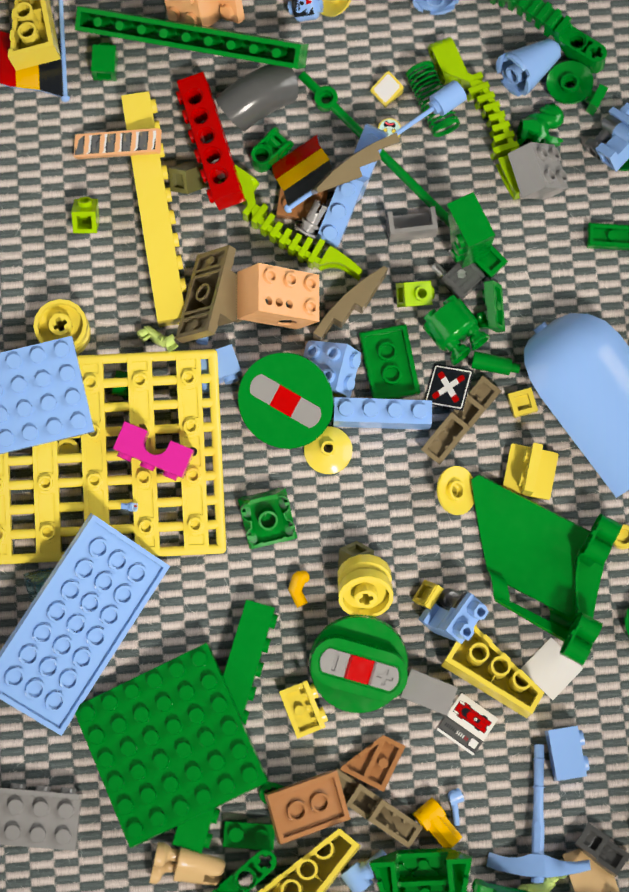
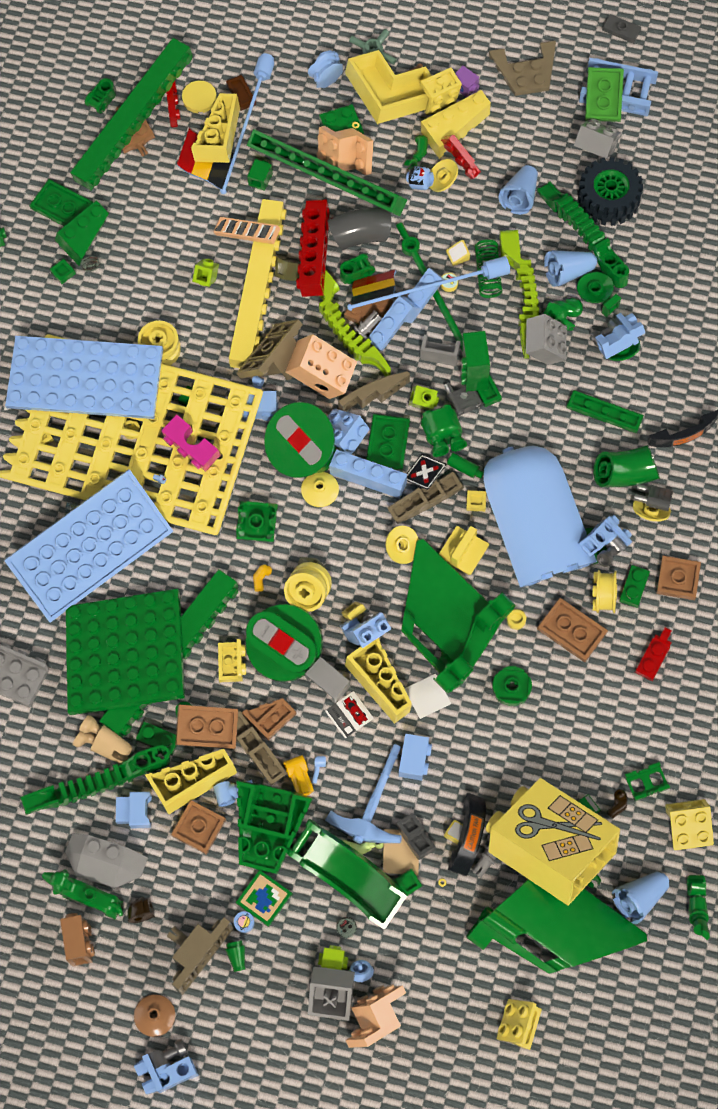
camera: 25 degrees right, 10 degrees down
(156, 337) = (224, 371): yellowish green arm -> none
(349, 168) = (403, 292): dark tan slope -> none
(494, 315) = (480, 426): green hinge -> none

